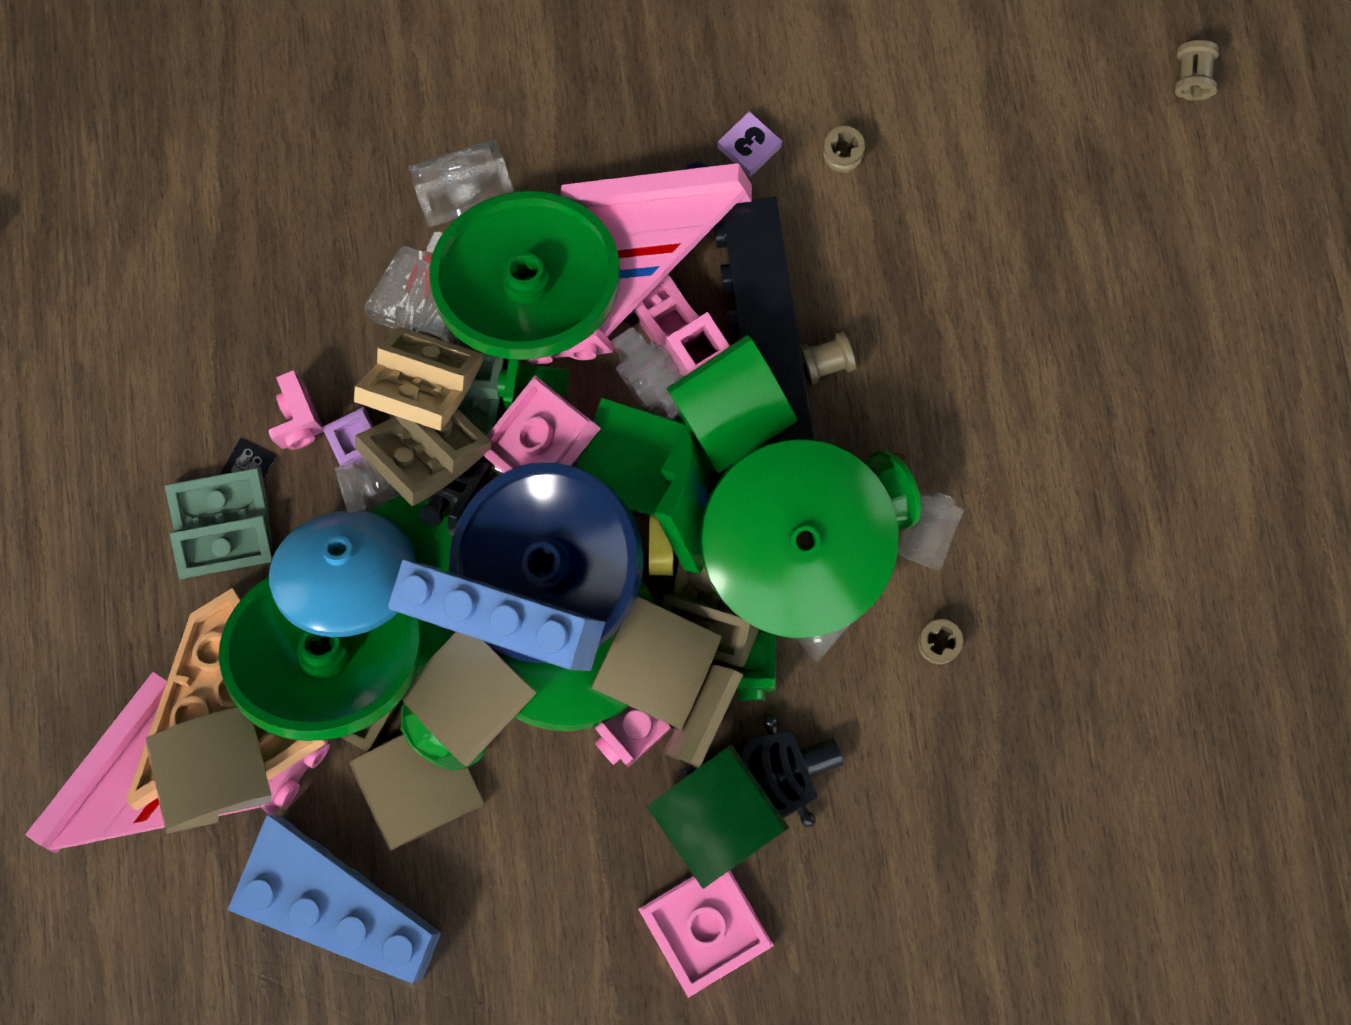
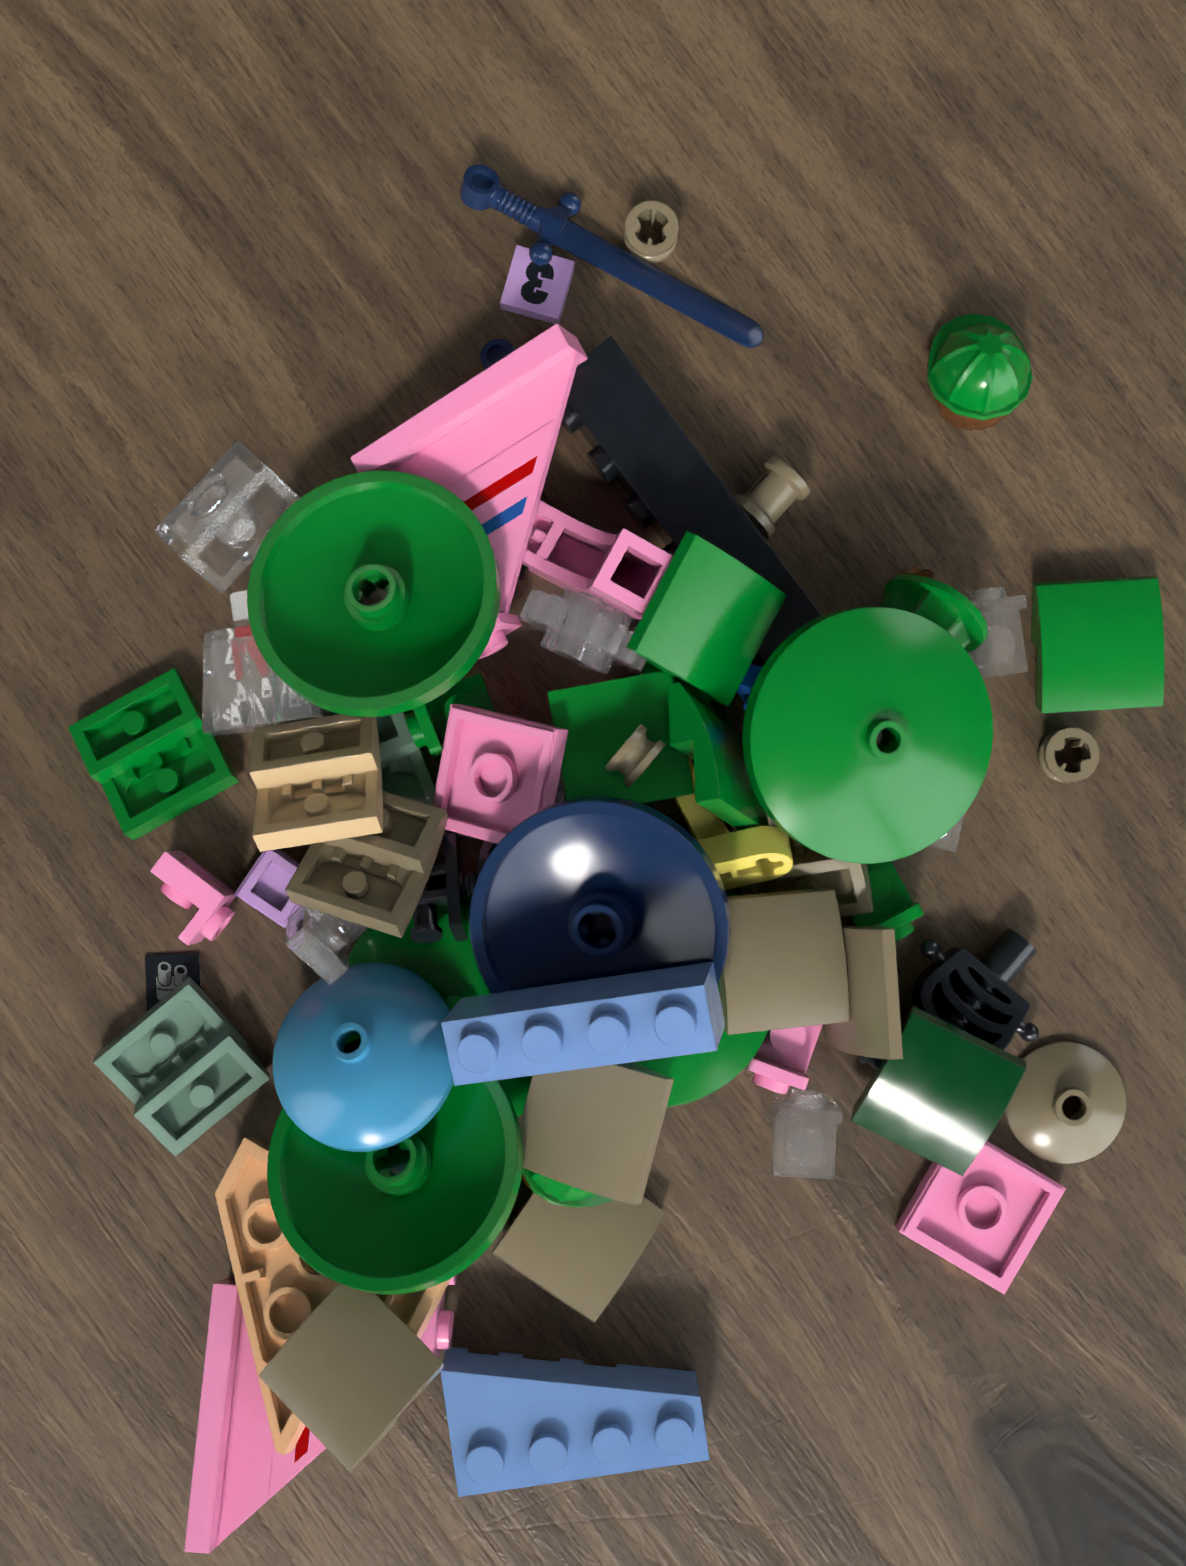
camera: 40 degrees left, 10 degrees up
(323, 310) = (153, 754): none -> green slope
(610, 804) = (804, 1135): none -> clear bracket
(633, 466) = (634, 756): none -> dark tan bush
(673, 581) = (749, 855): none -> light yellow beam
(781, 113) = (483, 191): none -> dark blue sword
(781, 891) = (1050, 1077): none -> dark tan dish
(1001, 576) = (1098, 644): none -> green slope
(1015, 351) = (977, 371): none -> green piece

